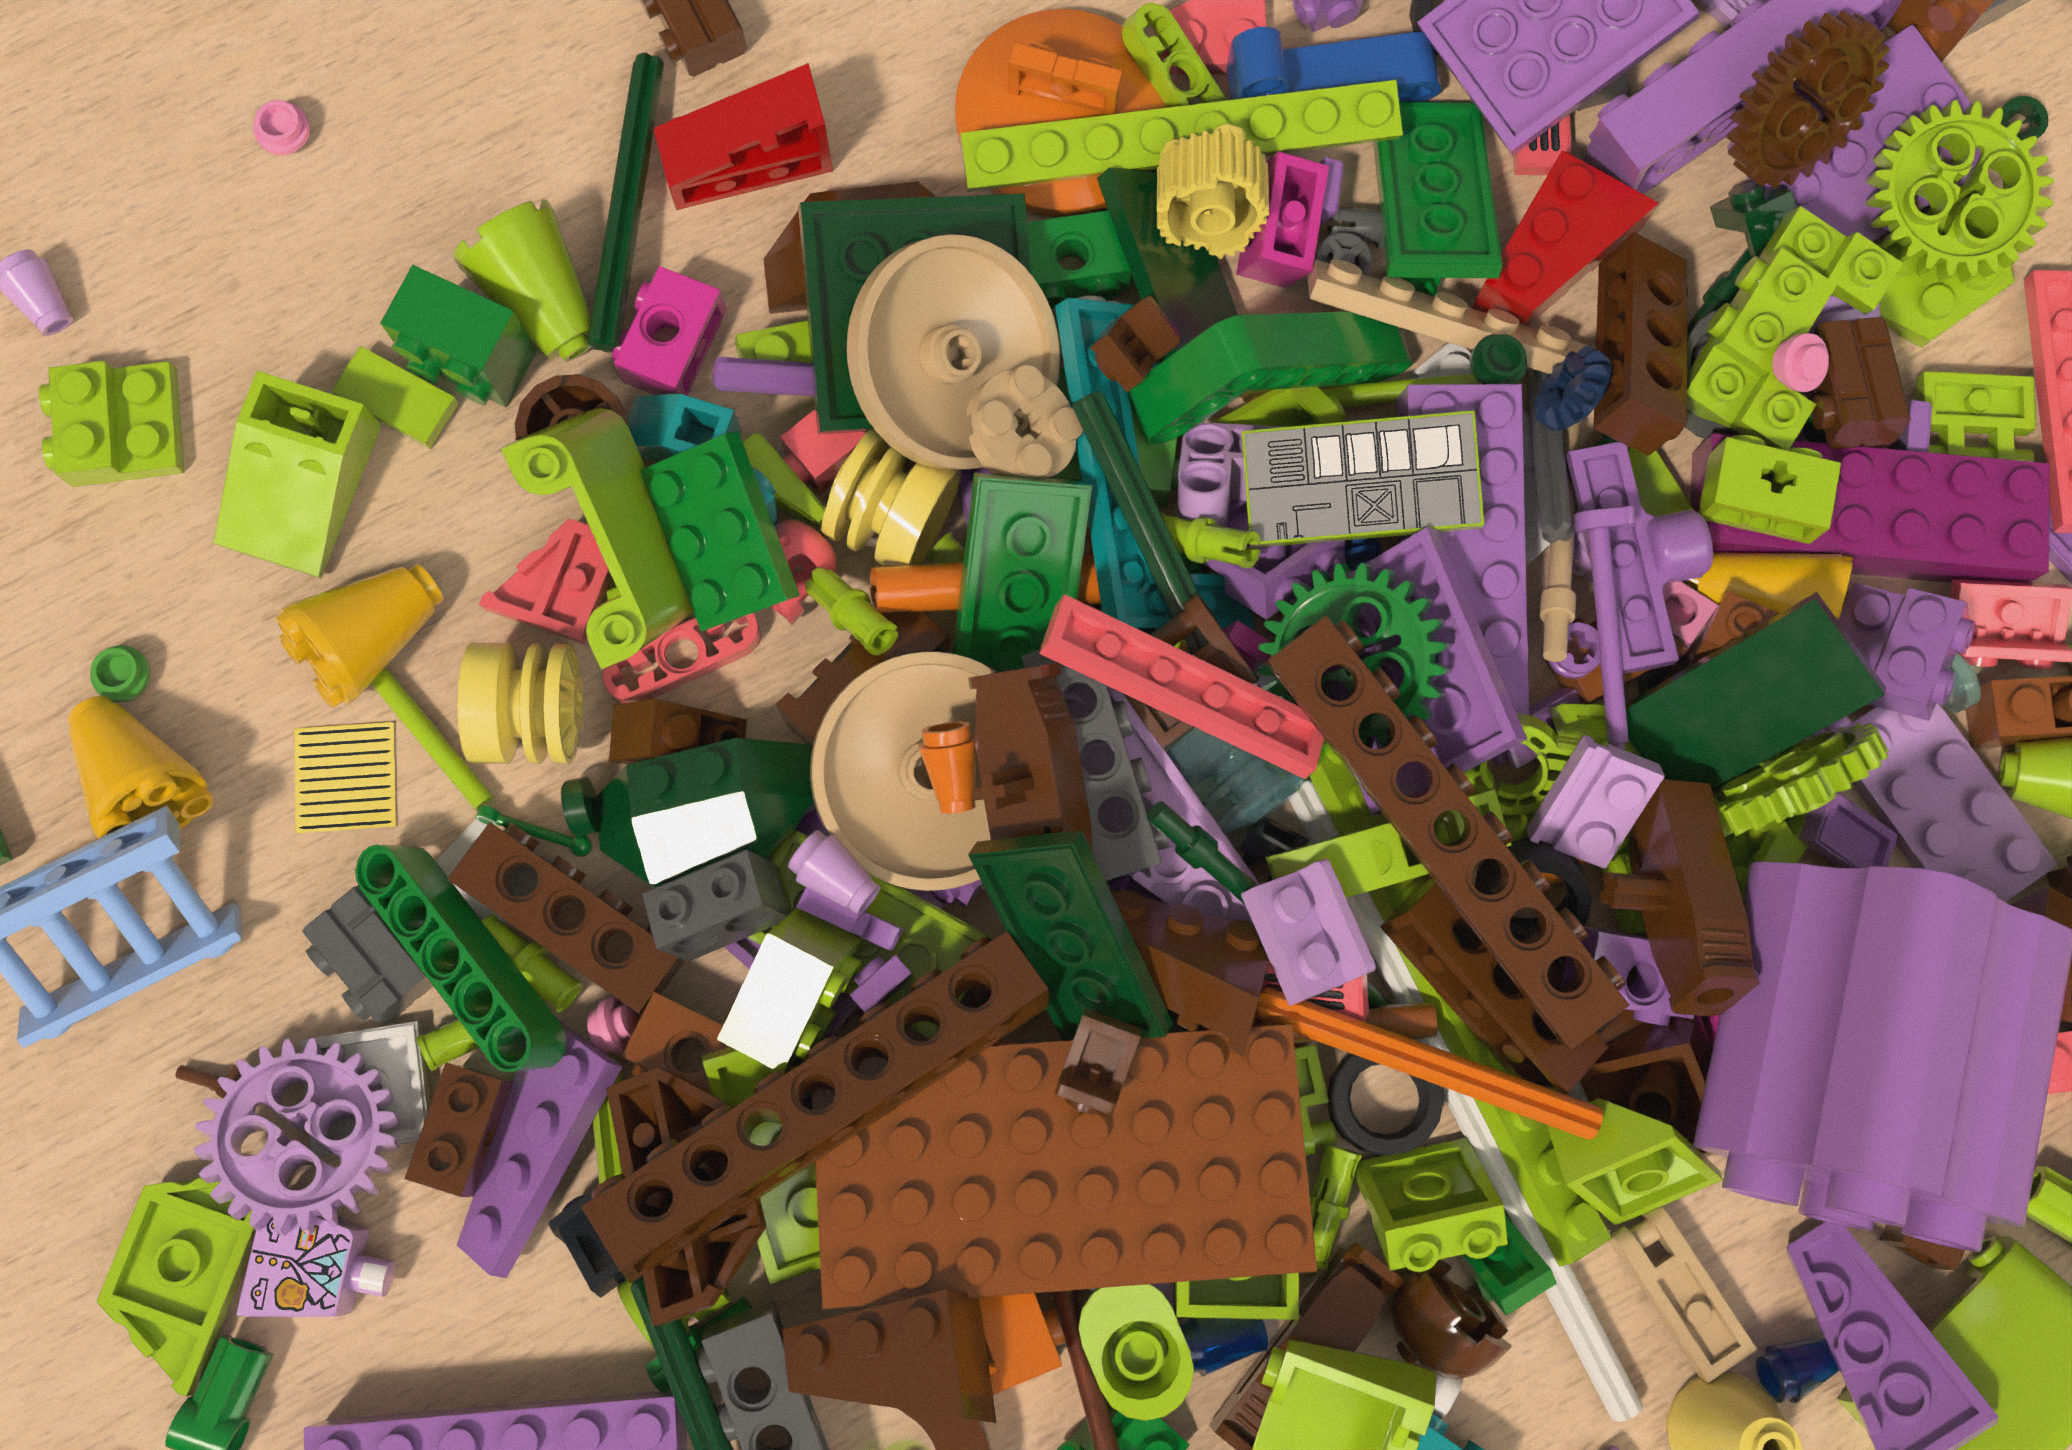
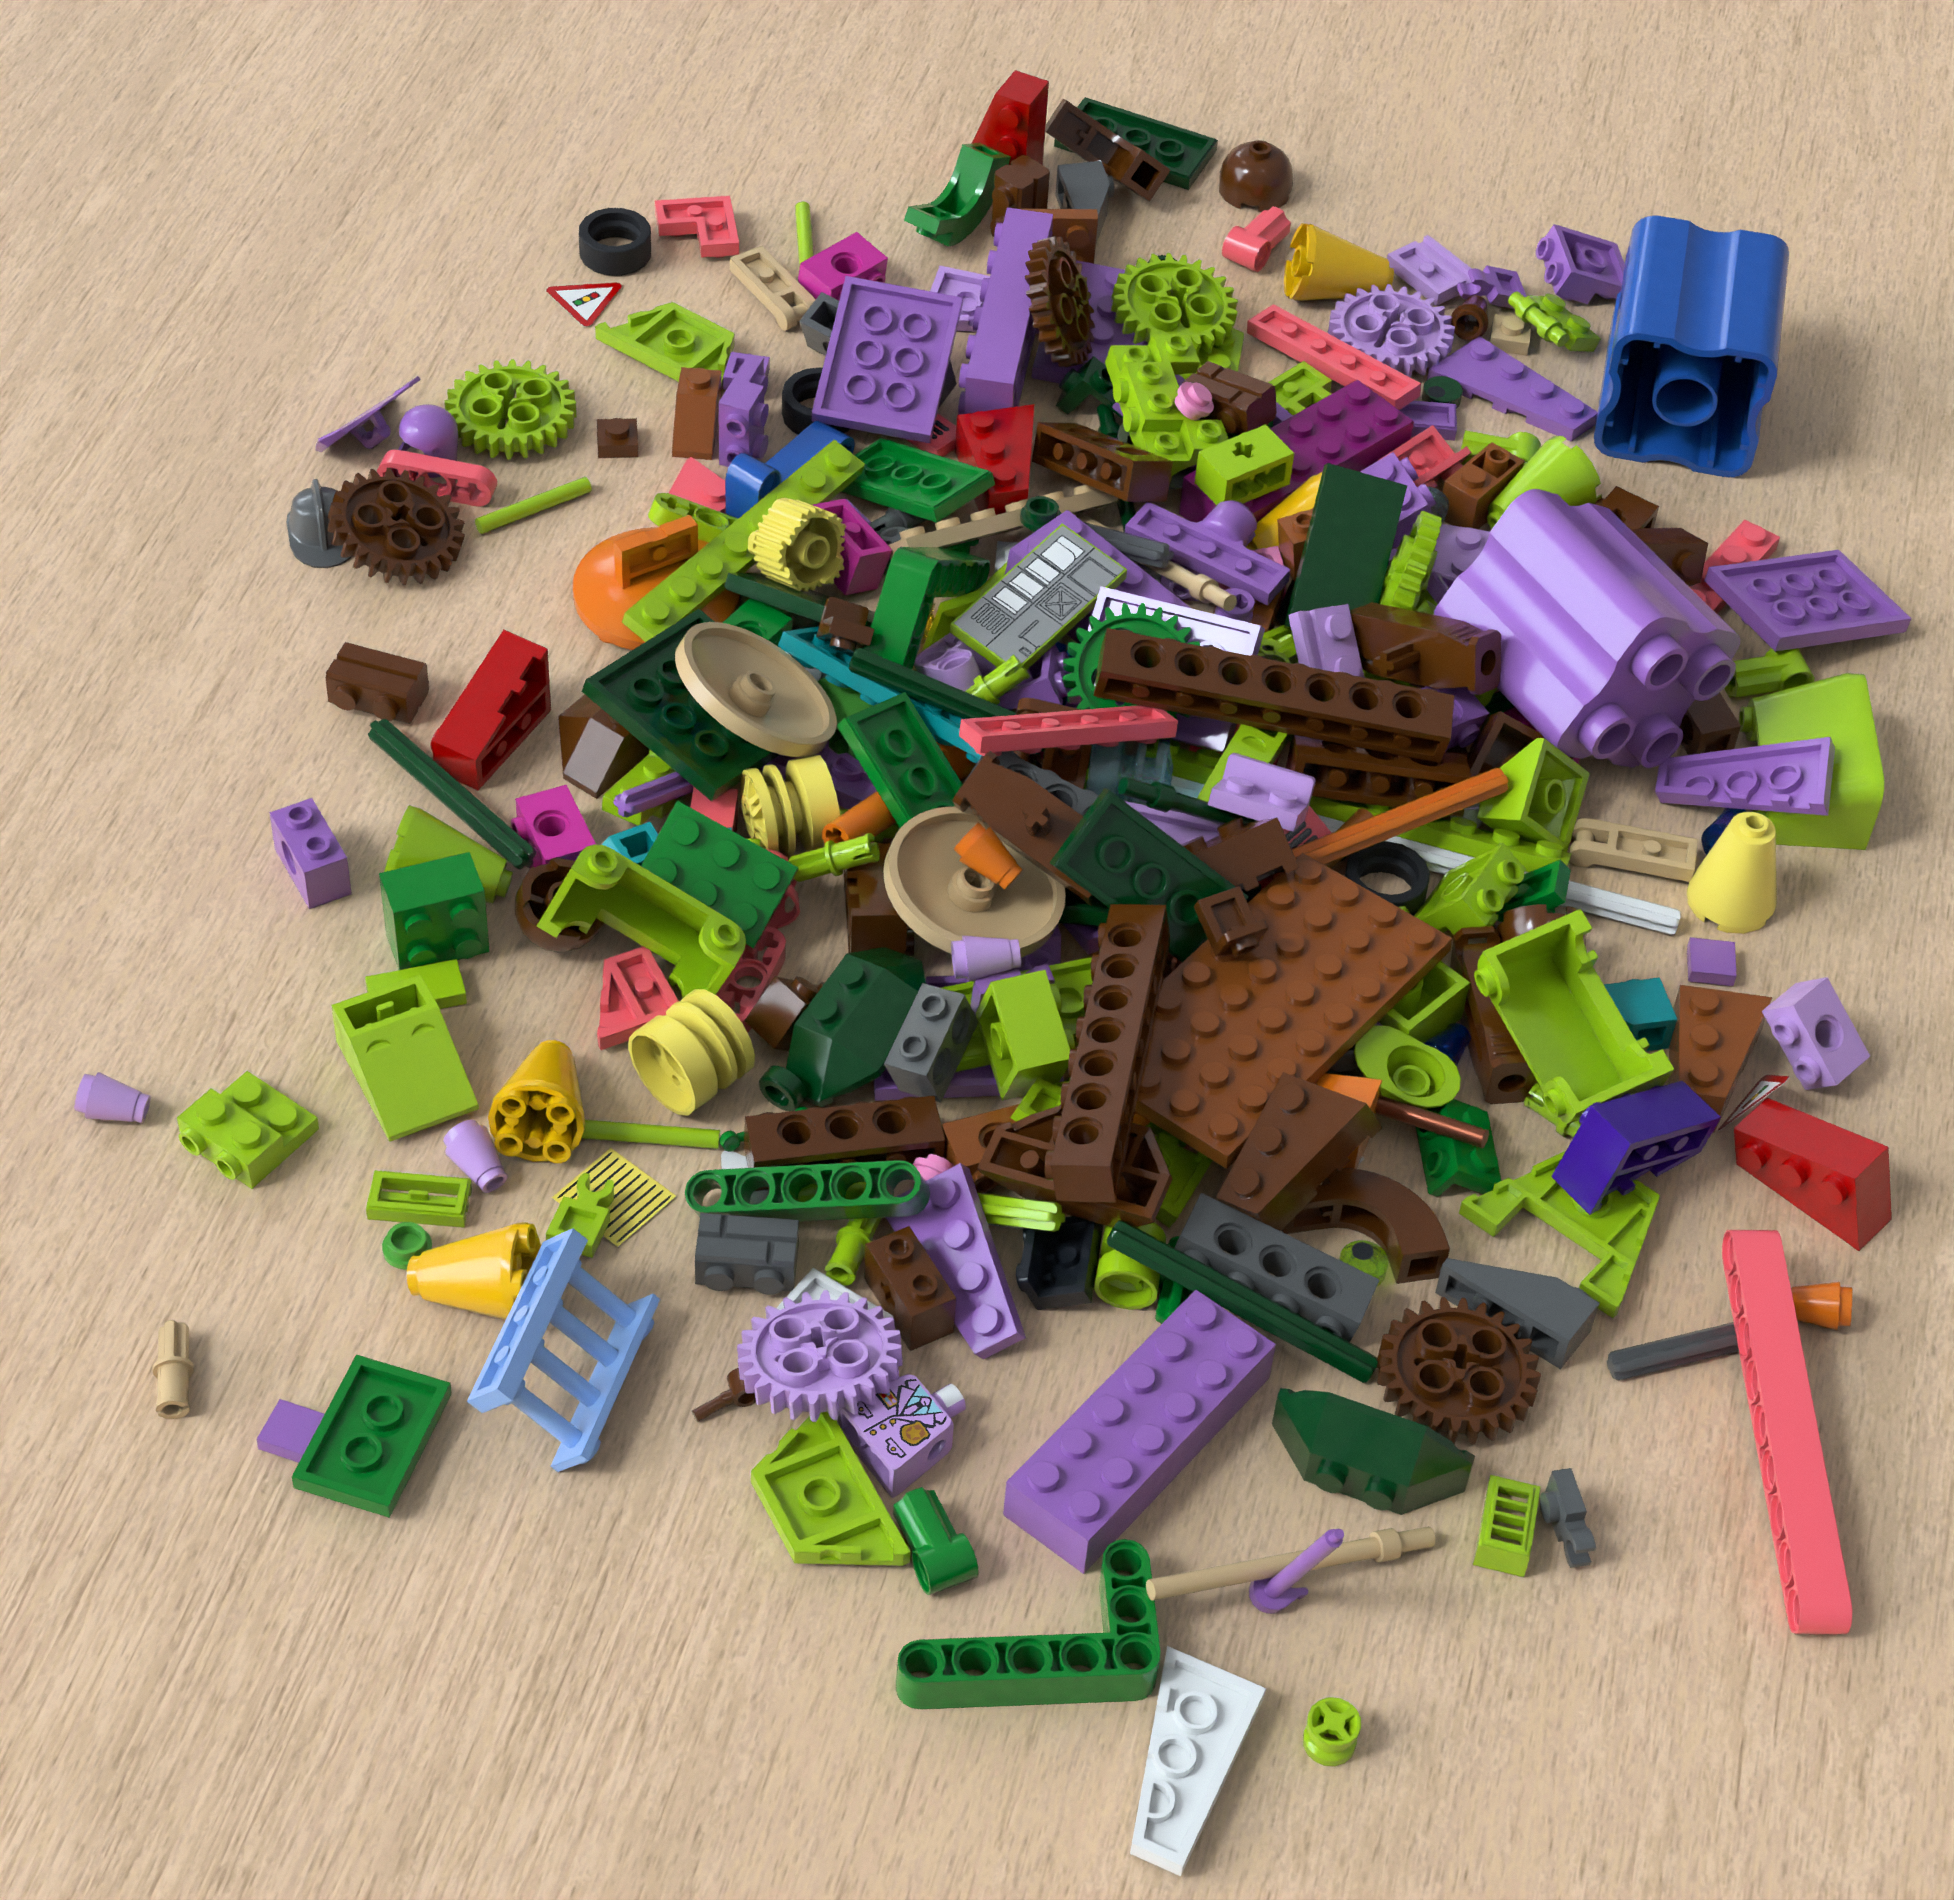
camera: 45 degrees left, 30 degrees down
(210, 663) = (417, 1204): none -> lime tile
(257, 633) = (475, 1154): none -> lavender cone
(275, 784) = (586, 1214): none -> lime plate
(281, 127) = (177, 912): bright pink plate -> none
(439, 163) = (310, 853): none -> medium lavender brick
(879, 982) = (1070, 1001): medium lavender plate -> none
(1044, 408) = (828, 695): tan plate -> none
(1573, 389) = (1102, 486): dark blue gear -> none
(1598, 525) = (1183, 535): medium lavender piece -> none

